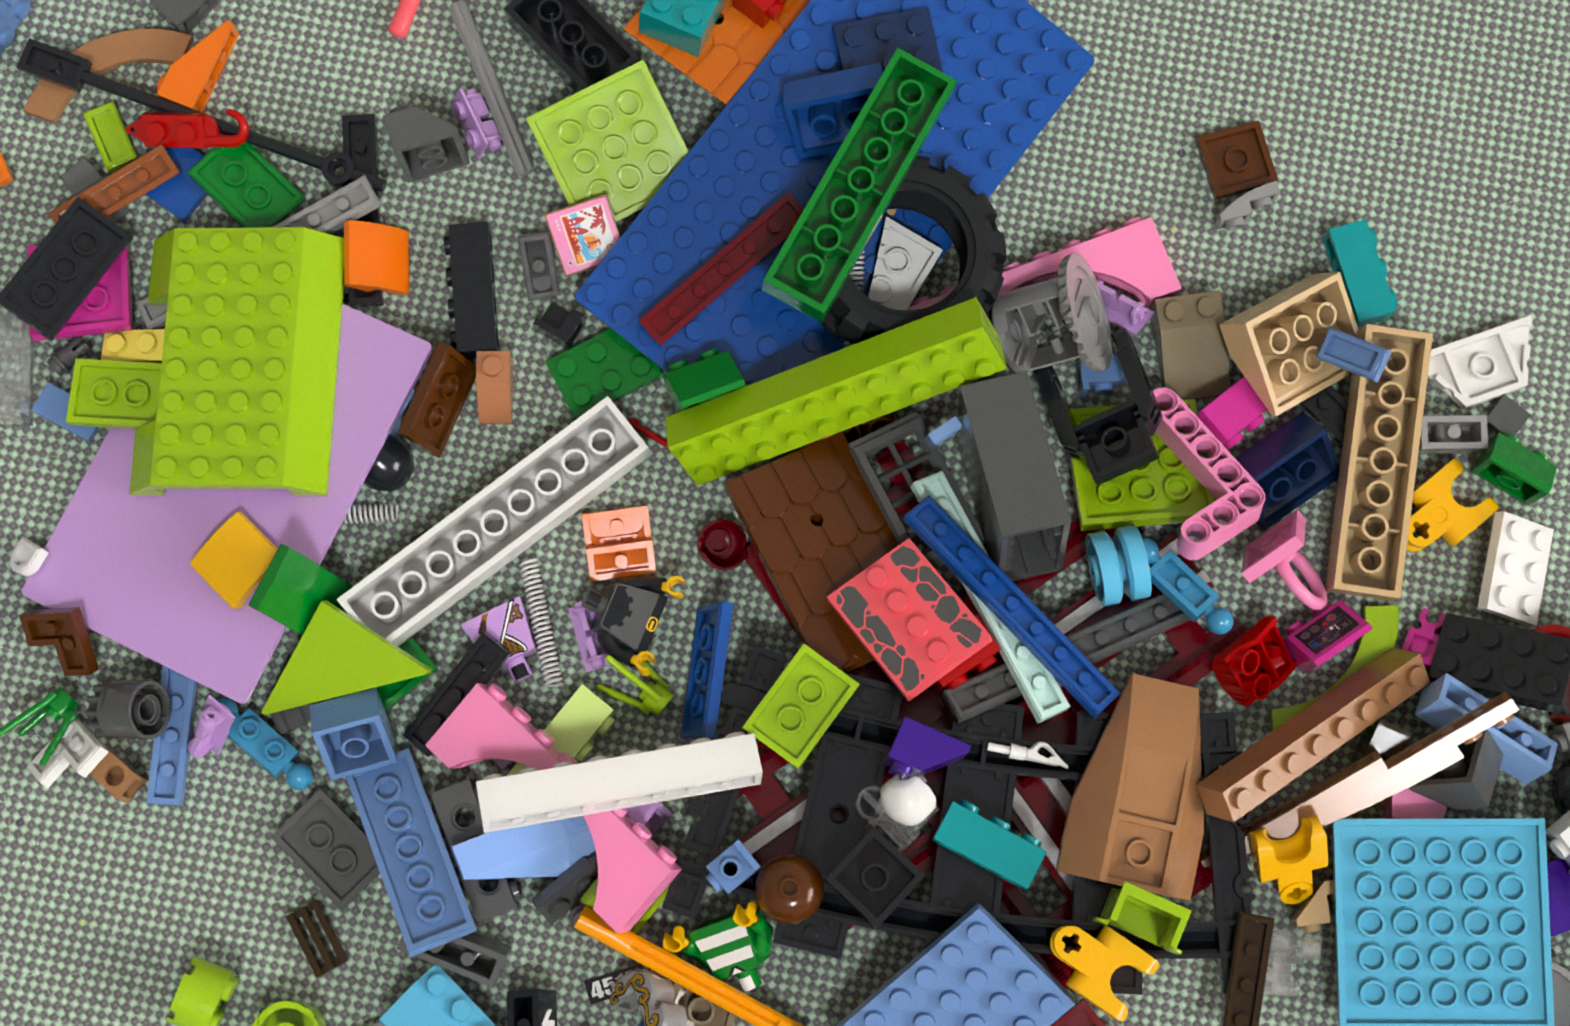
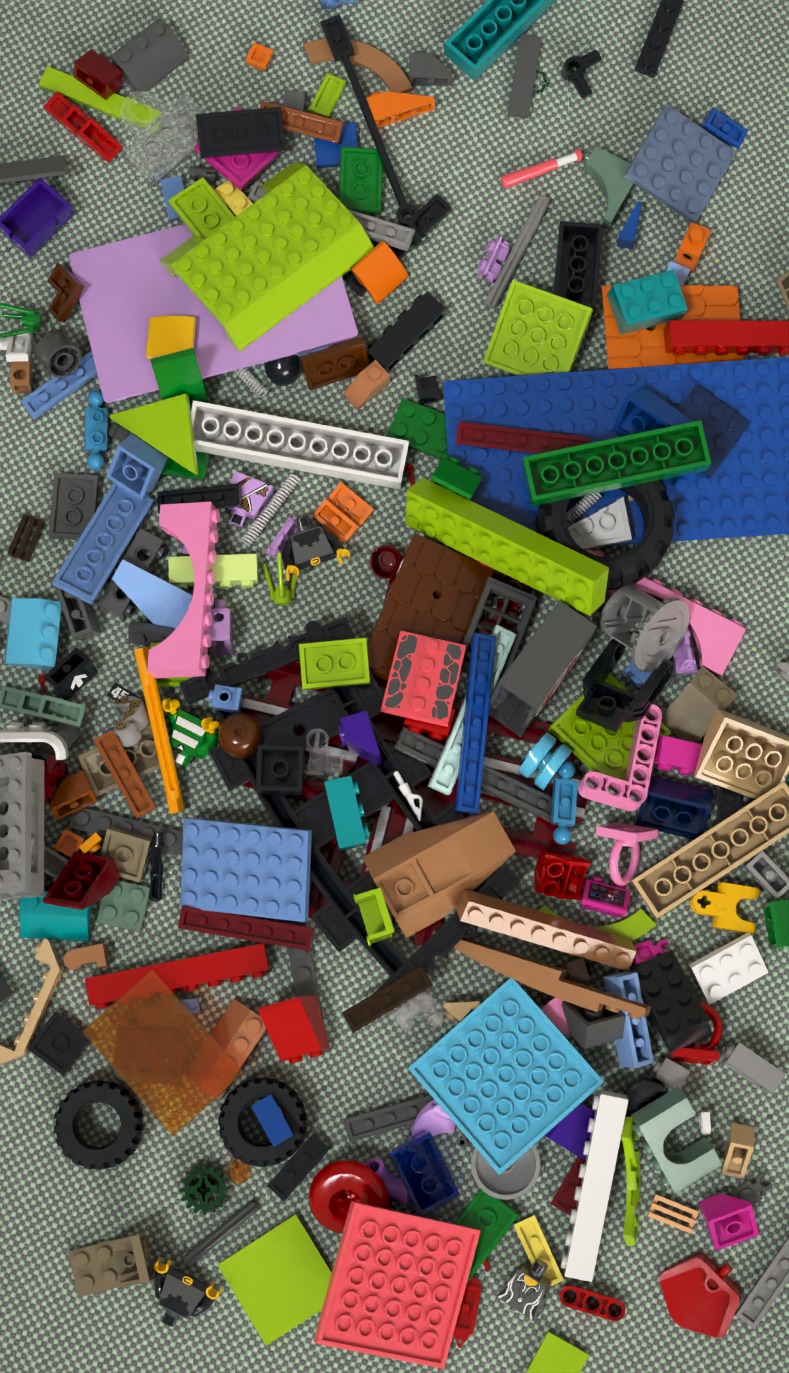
camera: 55 degrees right, 0 degrees up
(27, 557) = (88, 242): white tile -> none
(186, 130) = (361, 127): red plate -> none
(211, 728) = (81, 399): lavender hinge -> none
(424, 143) = (454, 242): dark grey slope -> none
(539, 265) = (448, 353): dark grey slope -> none
(583, 233) = (482, 358): tile -> none
(618, 782) = (219, 607): white brick -> none
(706, 671) = (315, 607): blue tile -> none
(907, 800) = (331, 752): white hair -> none
(943, 432) = (534, 617): light blue tile -> none
(1095, 963) = (331, 914): yellow piece -> none
(1291, 859) = (471, 972): yellow piece -> none
(1353, 354) = (761, 788): medium blue tile -> none

